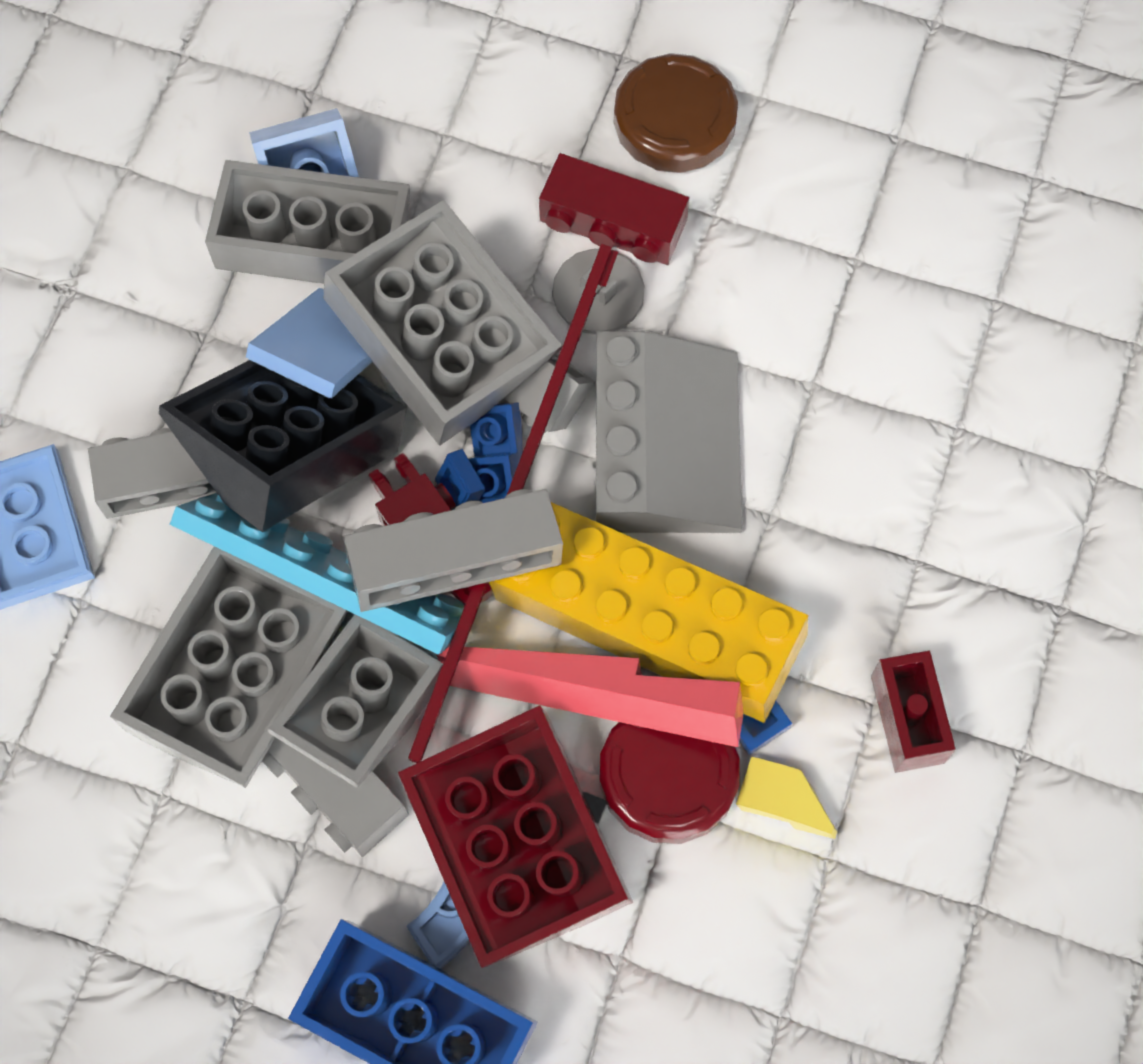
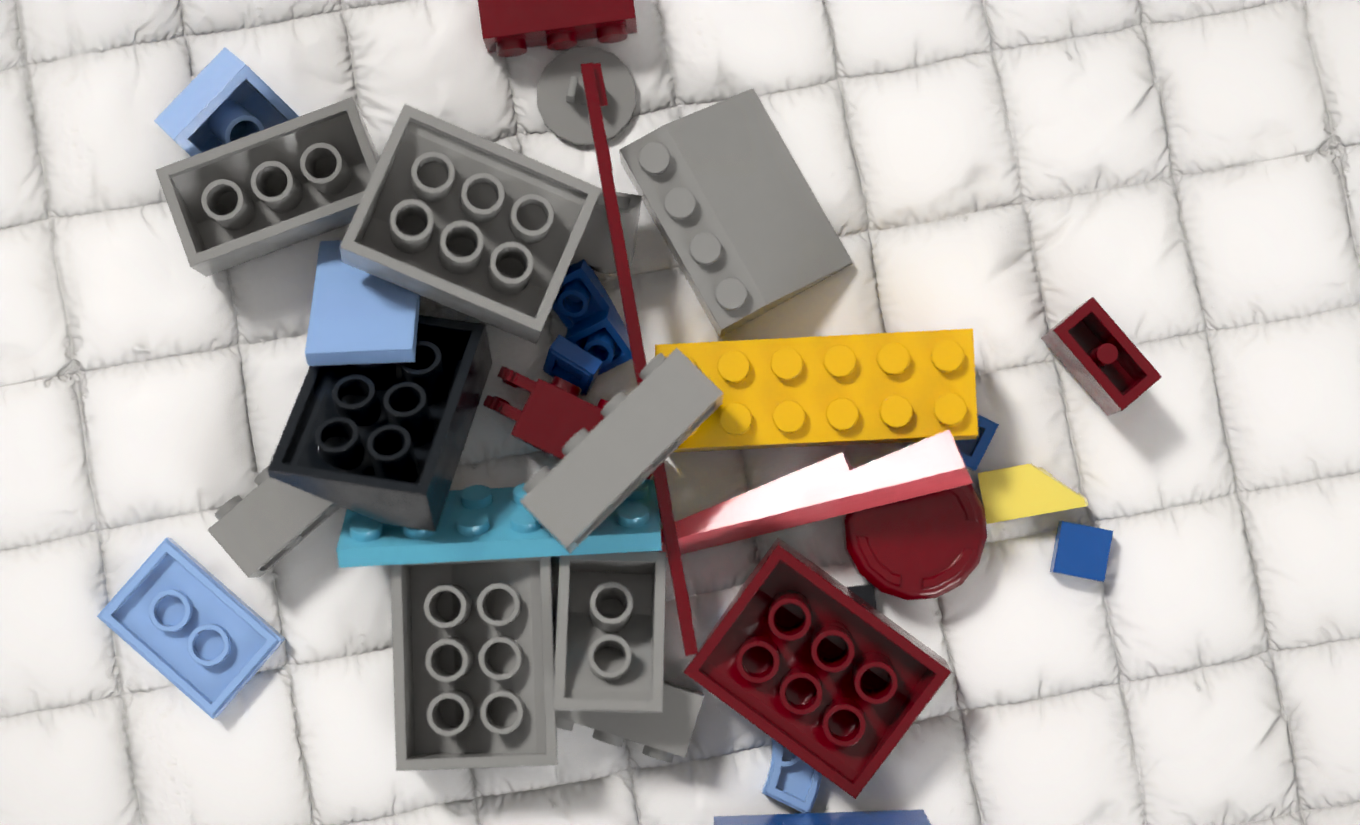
camera: 30 degrees left, 15 degrees up
(807, 876) = (1081, 551): none -> blue tile

